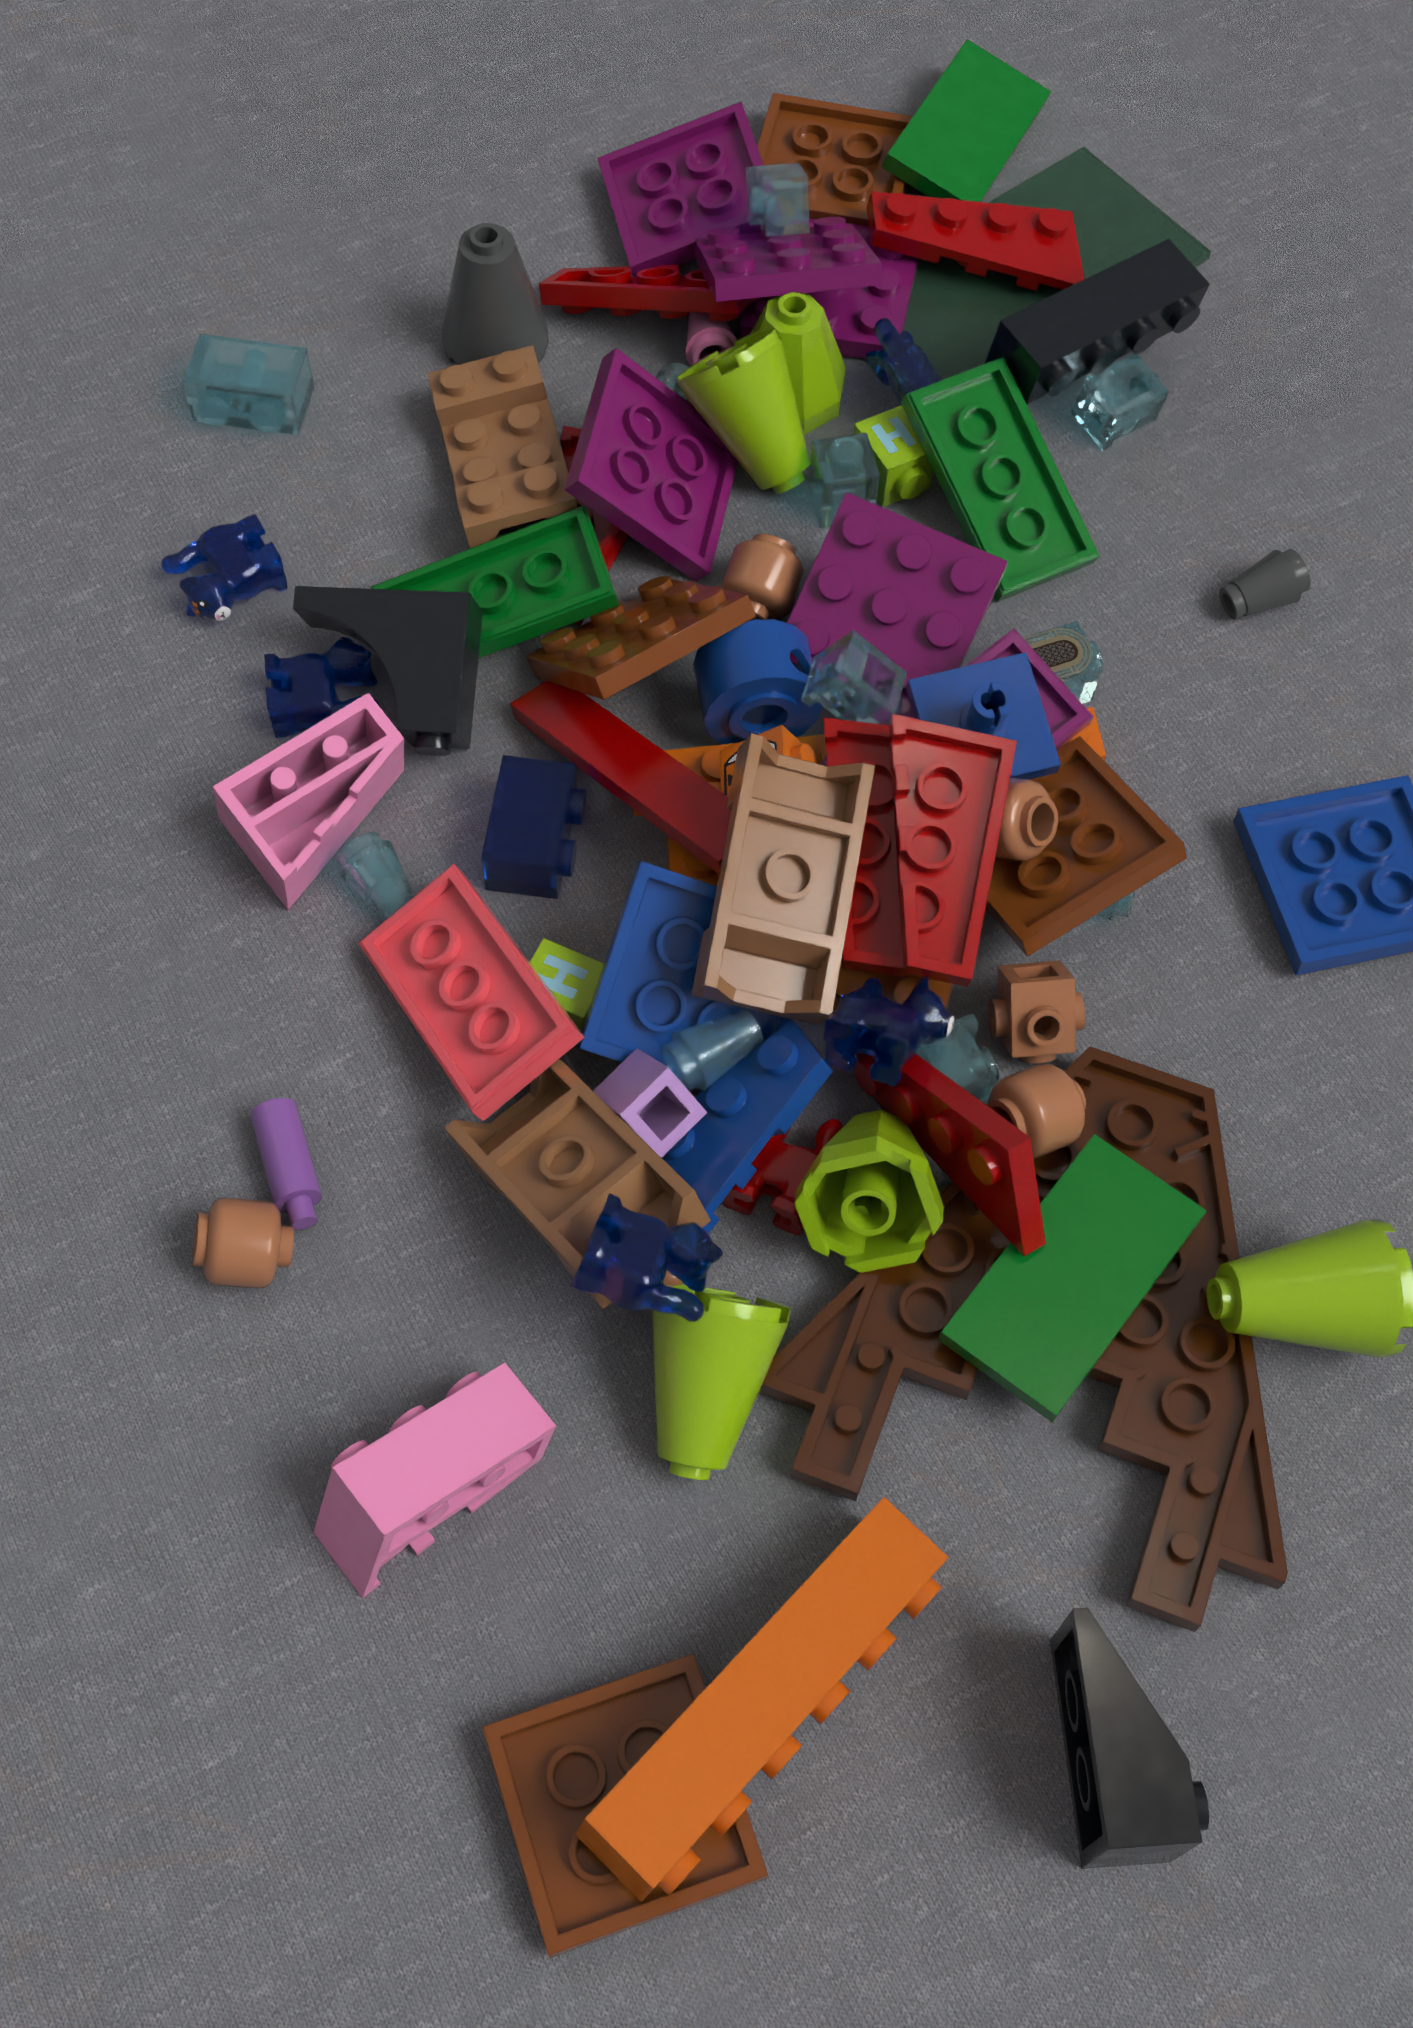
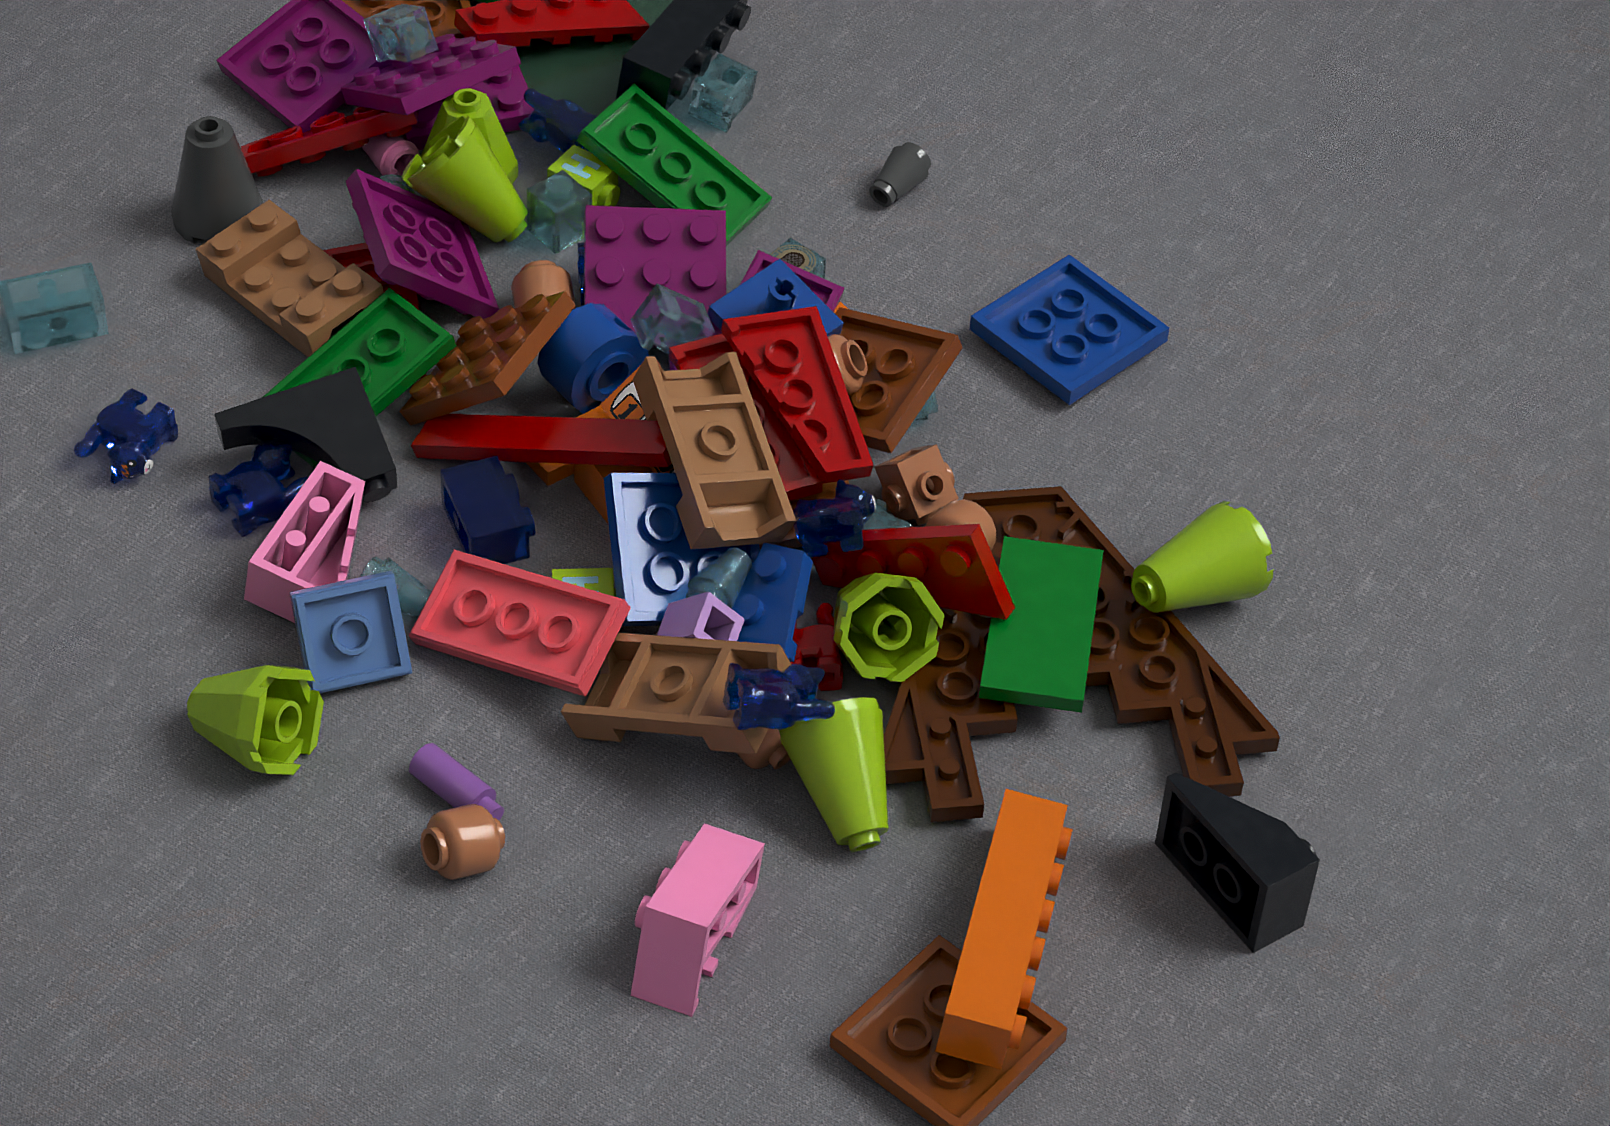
camera: 30 degrees left, 15 degrees down
(124, 983) = (259, 716): none -> lime cone
(281, 918) = (351, 632): none -> medium blue plate

